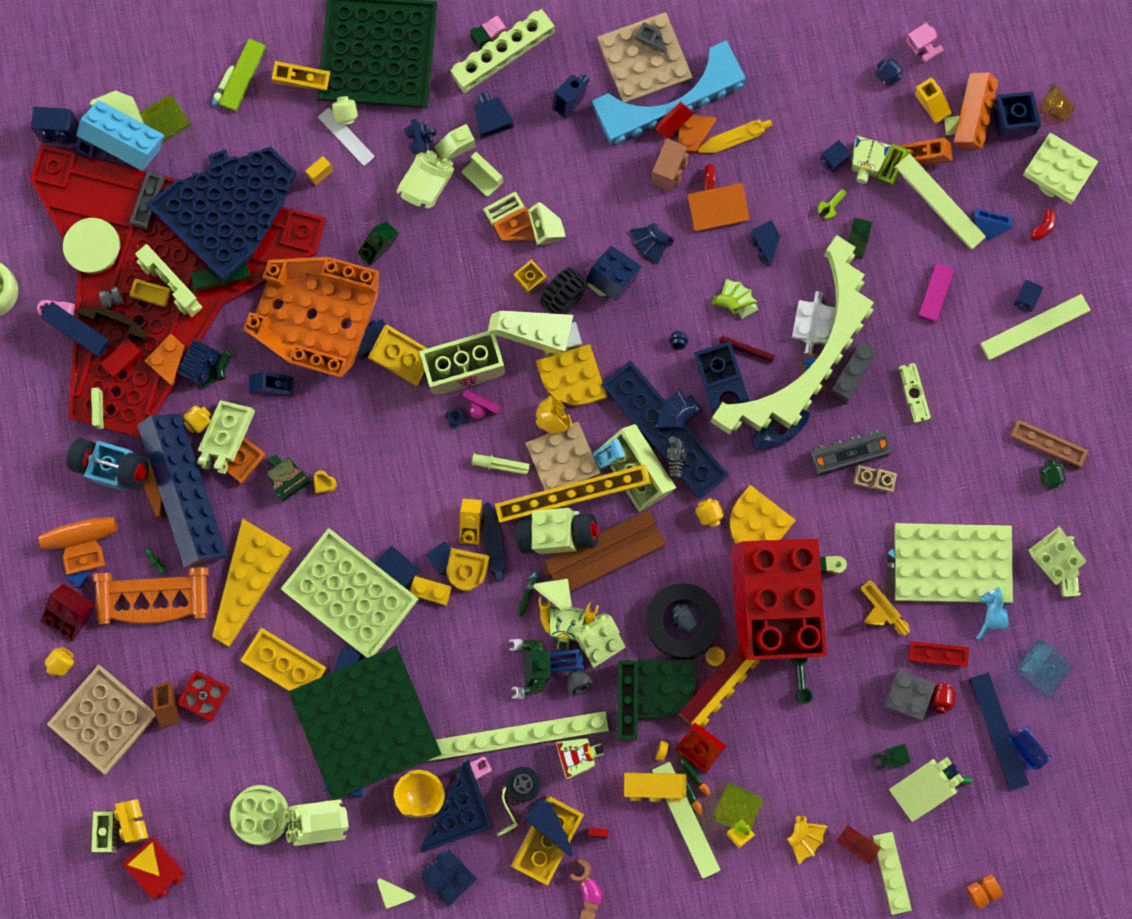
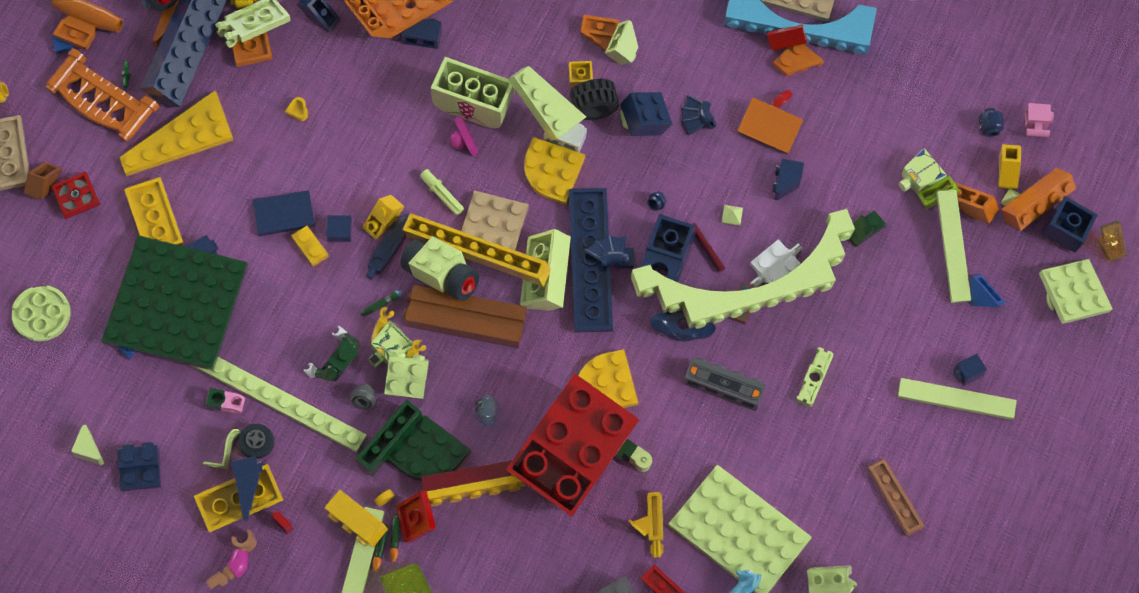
camera: 30 degrees right, 10 degrees down
(66, 612) = (30, 61): dark red slope -> none
(286, 477) = (271, 85): torso -> none
(316, 822) = (75, 347): yellowish green brick -> none
(349, 594) = (246, 201): yellowish green plate -> none
(398, 355) = (428, 53): yellow tile -> none
(419, 794) = (168, 385): yellow cylinder -> none
(450, 417) = (436, 130): dark blue plate -> none
(461, 812) = (190, 424): dark blue tile -> none
(466, 569) = (349, 248): yellow tile -> none
(500, 202) = (602, 13): yellowish green tile -> none
(552, 417) = (511, 184): yellow cylinder -> none
(556, 592) = (401, 313): yellowish green slope -> none
(577, 756) = (315, 452): torso -> none
(578, 659) = (375, 378): blue tile -> none
(608, 454) = (530, 242): medium azure plate -> none
(669, 165) = (756, 66): nougat brick -> none
(676, 455) = (582, 280): dark grey piece -> none
(683, 593) = (484, 385): black tyre -> none
(709, 512) = (573, 345): yellow head -> none
(715, 656) = (487, 457): yellow tile -> none
(734, 296) = (727, 199): lime arm -> none
(735, 136) = (827, 85): yellow piece -> none
(803, 694) = (533, 540): dark green bar -> none
(831, 205) = (862, 189): lime bar -> none
(835, 156) = (895, 154): dark blue brick -> none
(853, 372) = (777, 324): dark grey brick -> none
(874, 479) = (728, 418): tan slope -> none
(890, 572) = (682, 500): clear smoke piece -> none
(936, 292) = (895, 314): dark pink tile -> none
(1046, 227) = (1026, 329): red arm -> none
(1052, 474) = (878, 521): dark green head -> none

